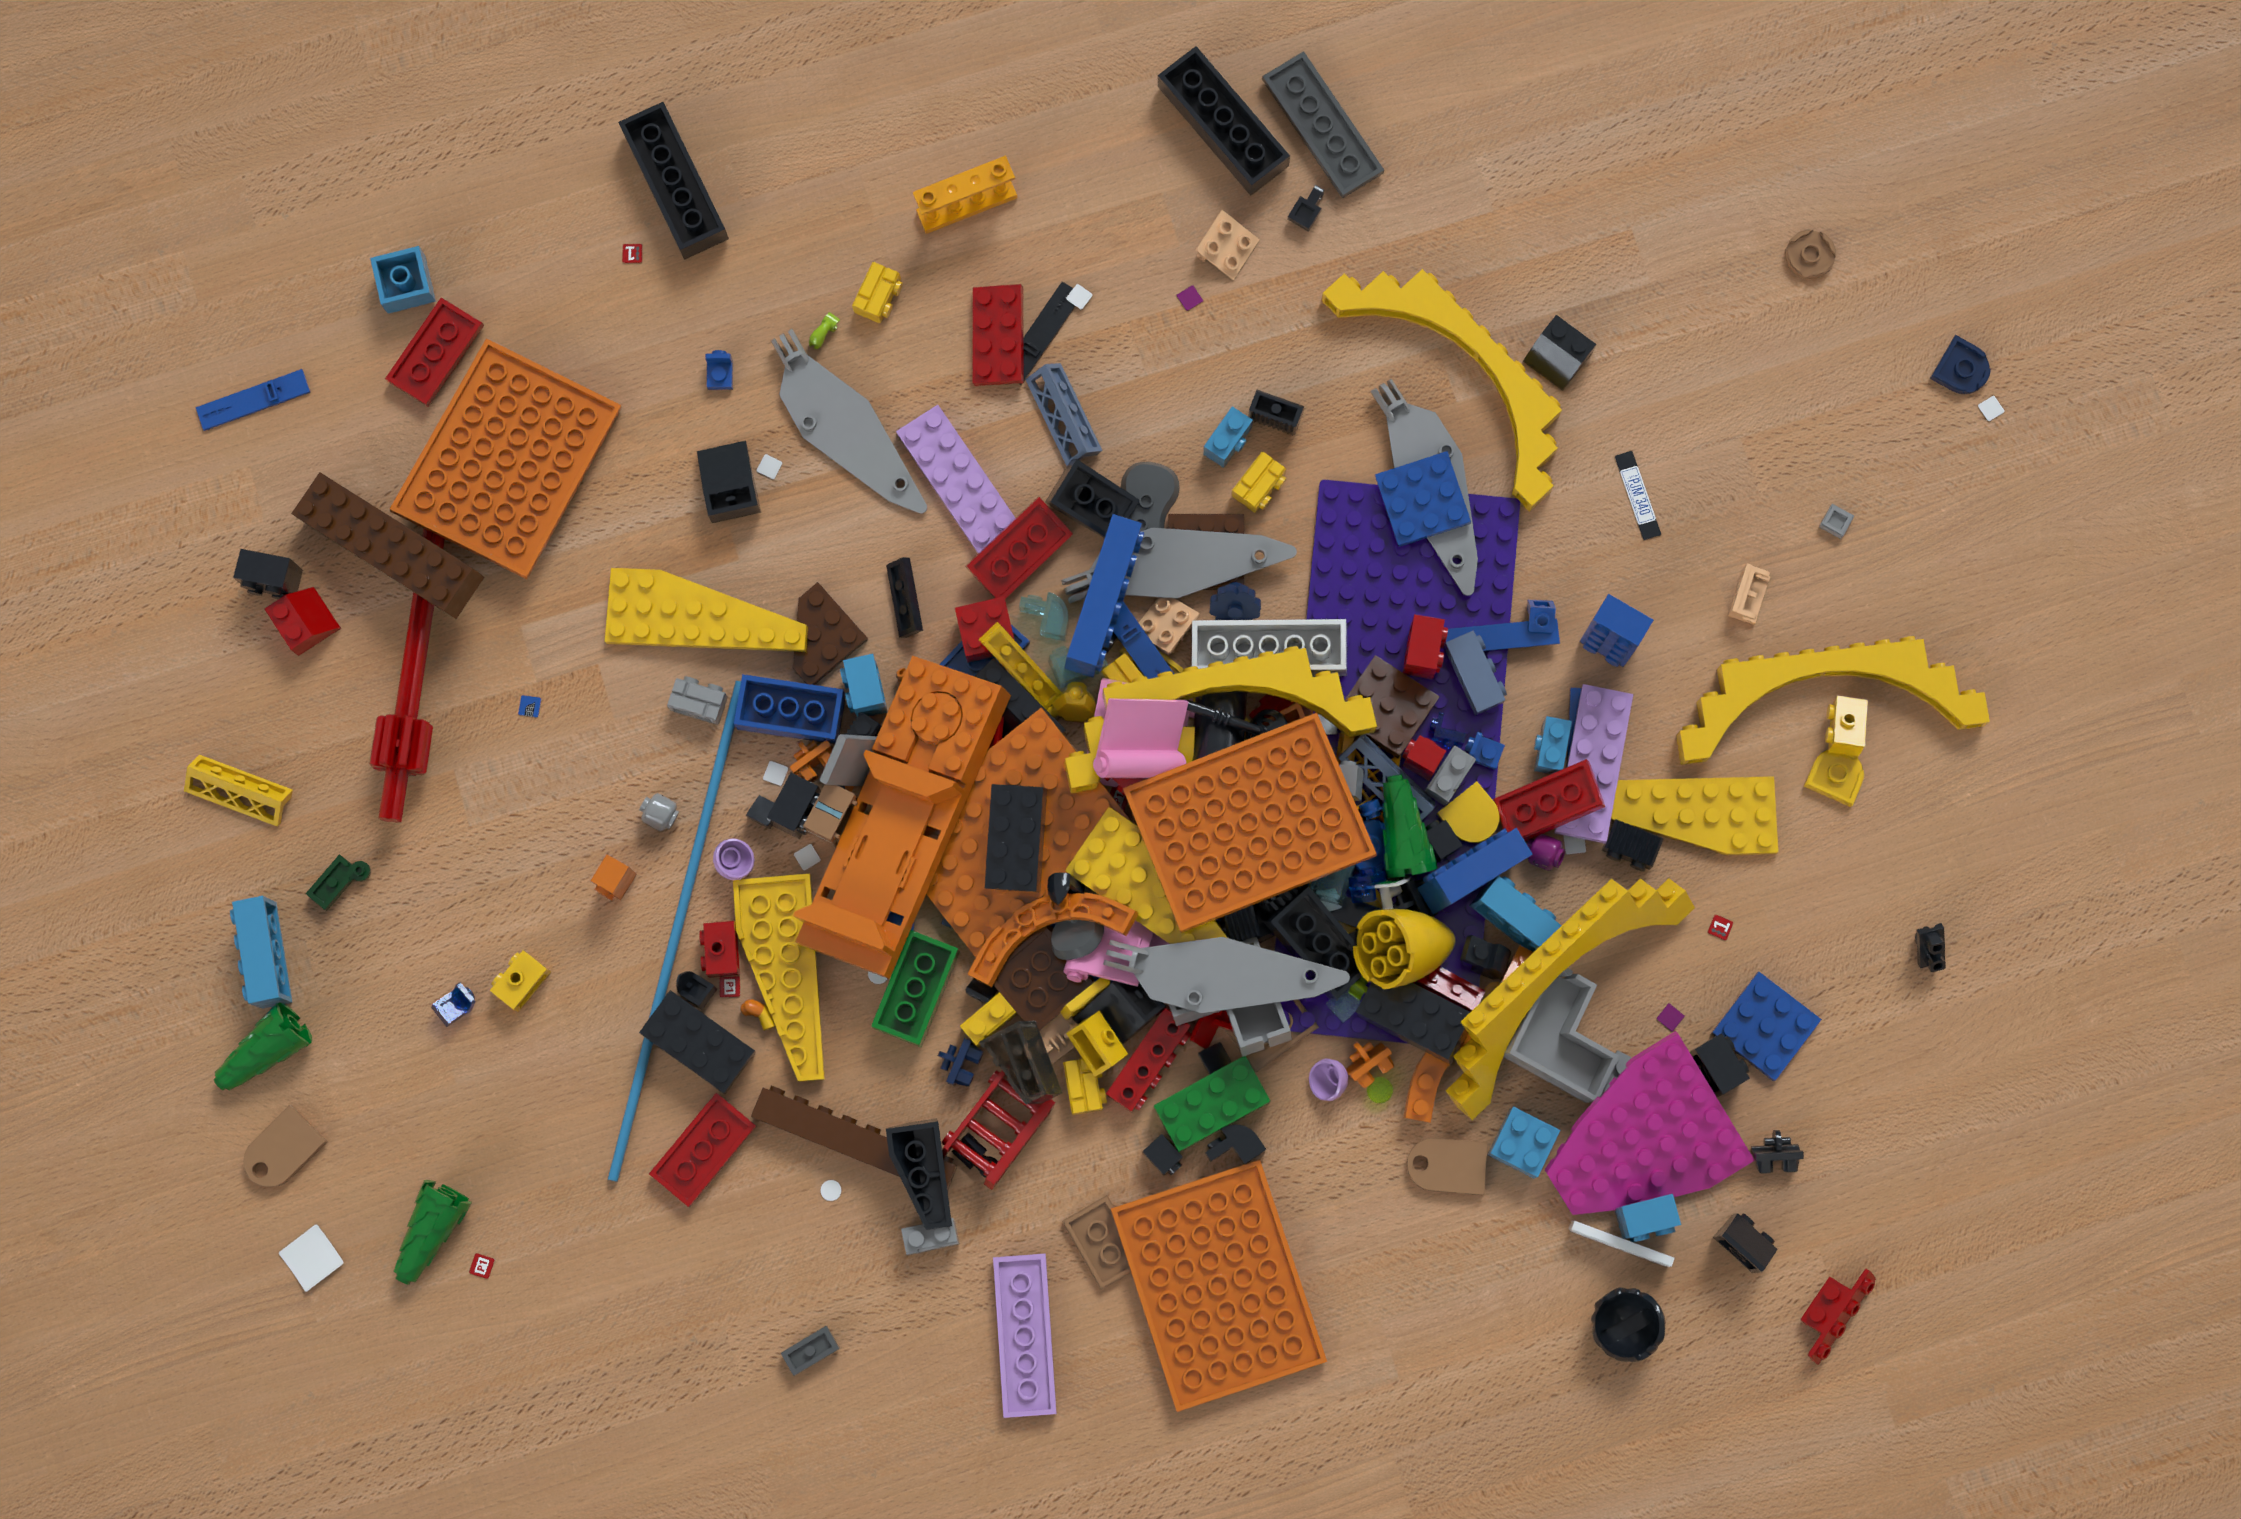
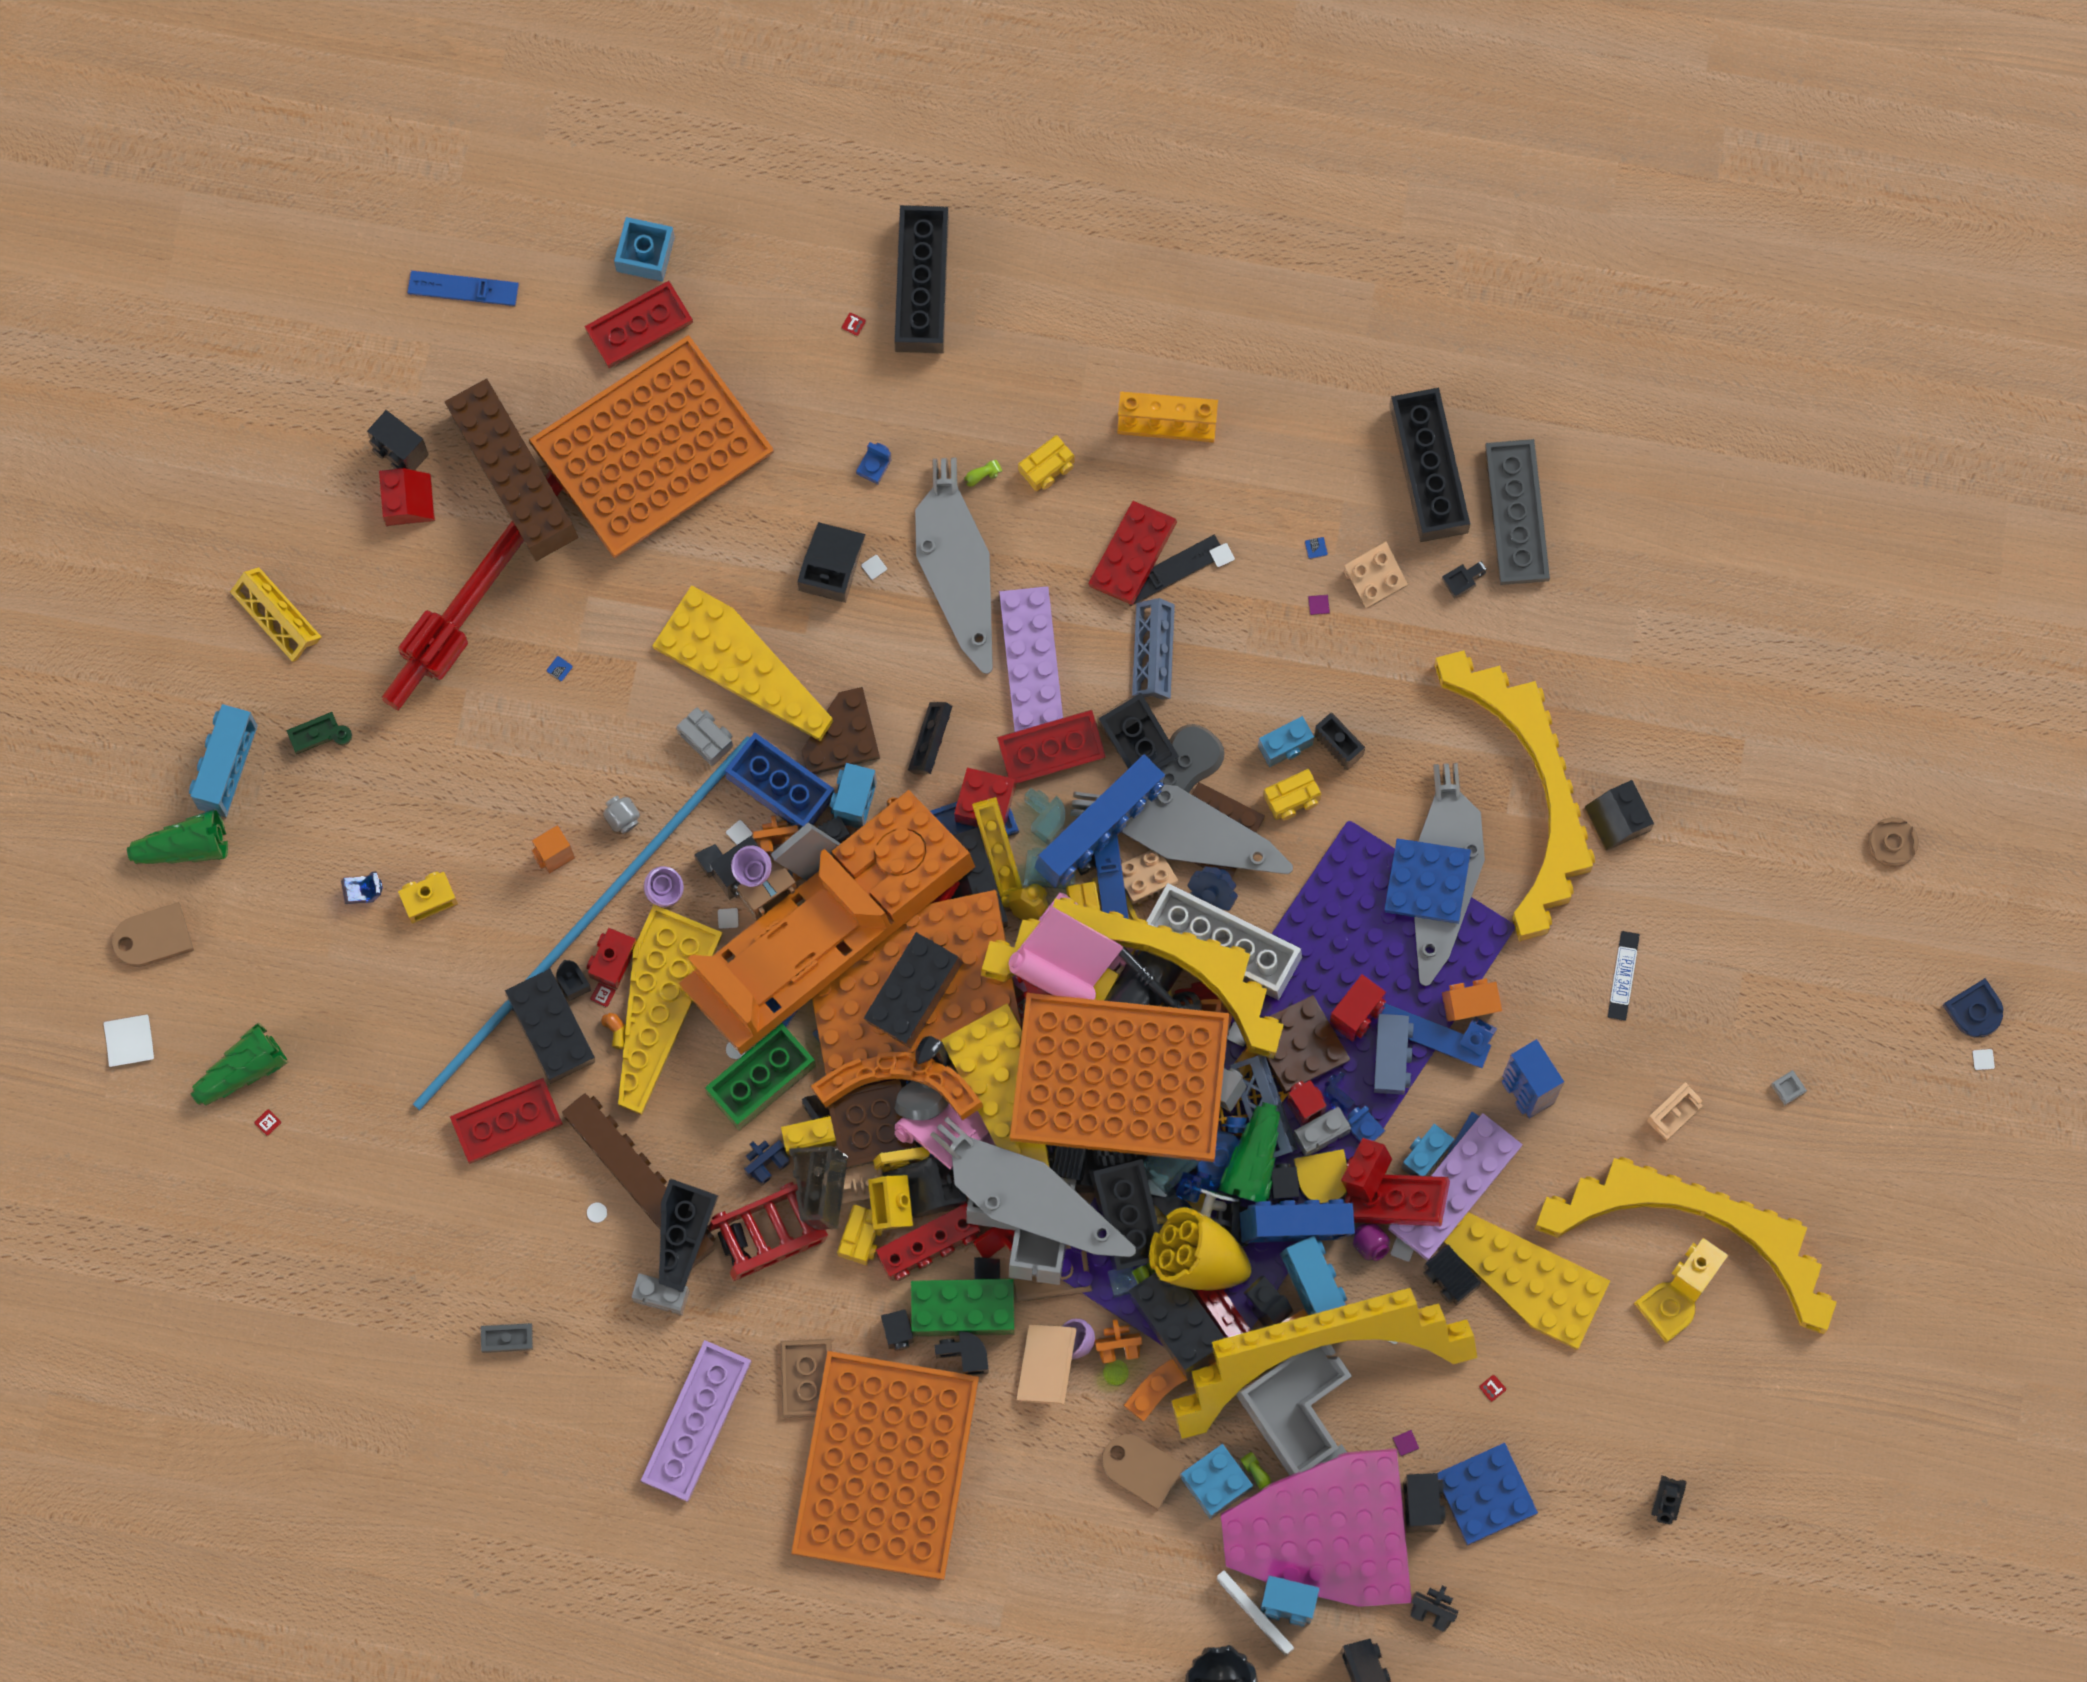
camera: 25 degrees right, 5 degrees down
(807, 801) = (751, 866): none -> lavender piece
(1159, 247) = (1316, 547): none -> blue sticker
(1315, 1116) = (1046, 1364): none -> light nougat tile
(1508, 789) = (1366, 1169): none -> red brick
(1519, 587) = (1471, 1001): none -> orange brick
(1561, 1117) = (1251, 1464): none -> lime arm

